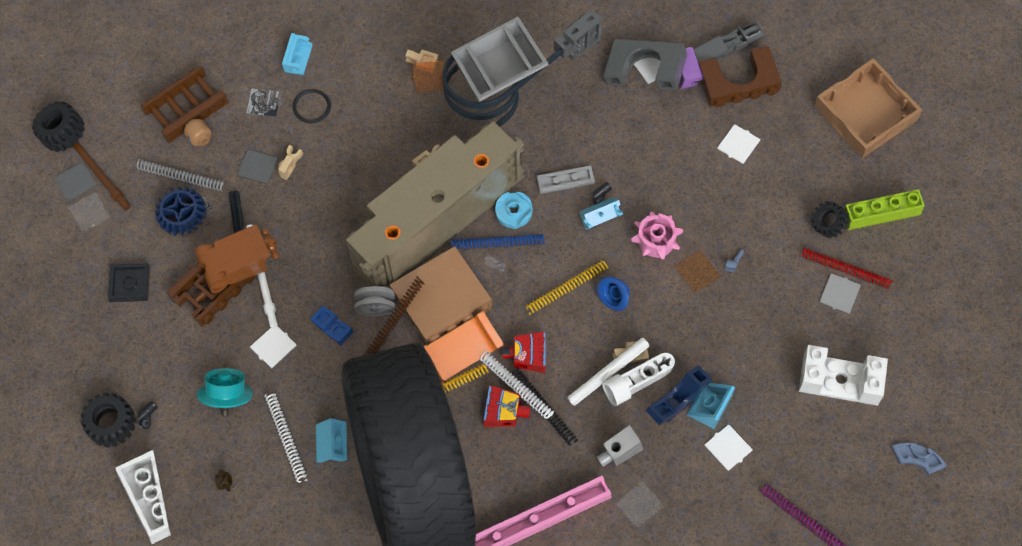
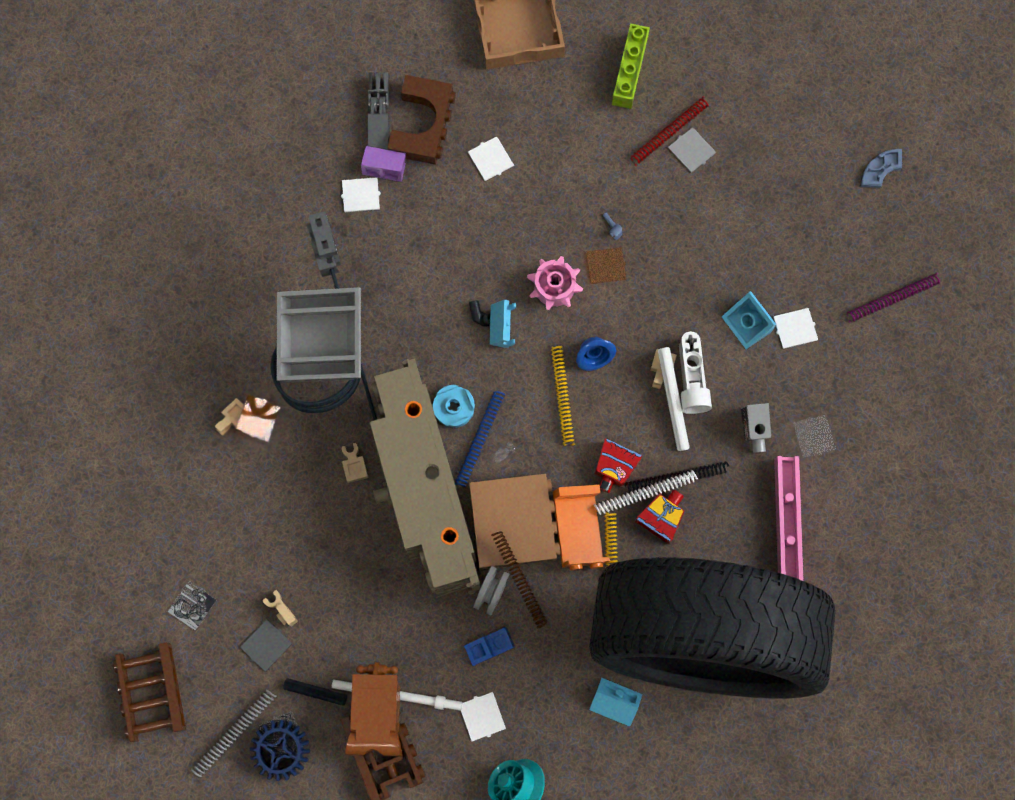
camera: 65 degrees left, 10 degrees up
(197, 132) = (193, 692): medium nougat head -> none
(289, 436) = (588, 748): white piece -> none
(297, 54) = (154, 544): medium azure hinge -> none
(314, 120) = (243, 559): black tyre -> none
(565, 179) = (444, 340): light grey tile -> none
(628, 52) = (338, 208): dark grey arch -> none
(680, 397) = (729, 345): dark blue arch -> none
(822, 212) = (609, 127): black tyre -> none
(863, 380) = (791, 175): white plate -> none

